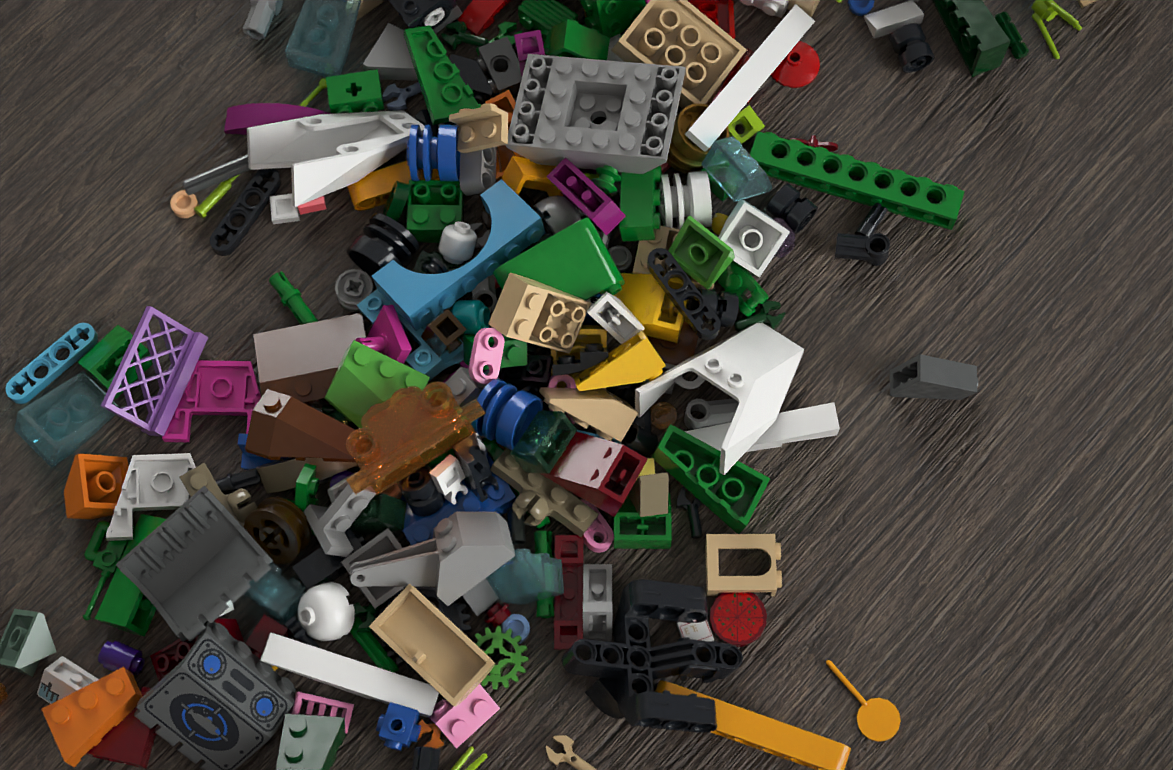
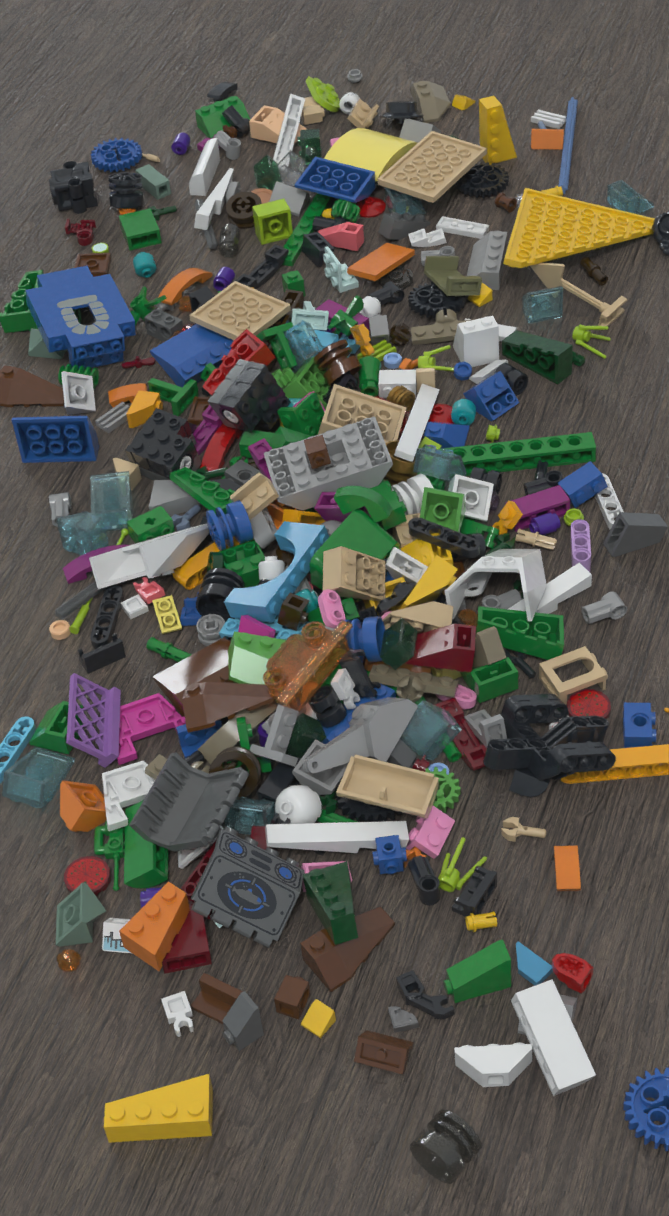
camera: 20 degrees left, 25 degrees down
(62, 586) = (90, 871): none -> tile
(213, 268) = (103, 655): none -> black hinge
(266, 74) = (82, 532): none -> clear light blue slope
(315, 241) = (167, 614): none -> light yellow slope
(338, 255) = (189, 613): none -> blue slope
(582, 98) = (317, 451): none -> reddish brown brick
(592, 207) = (354, 497): none -> green brick
(754, 21) = (402, 397): none -> pearl gold wheel
(779, 661) = (638, 725): none -> blue brick
(783, 106) = (447, 434): none -> blue slope
(788, 286) = (508, 517): none -> light orange plate
(808, 329) = (536, 539): none -> tan axle
(823, 78) = (463, 412): none -> teal head
(830, 310) = (545, 524): none -> dark purple brick
(835, 279) = (542, 502): none -> magenta brick
(842, 479) = (609, 606): none -> light grey piece
(844, 127) = (492, 433): none -> lime plate
(856, 356) = (580, 544): none -> lavender beam
(873, 66) = (492, 396): none -> blue slope
(873, 315) = (572, 515): none -> lime plate
(908, 272) = (583, 484): none -> blue brick
(928, 307) = (605, 502): none -> white beam

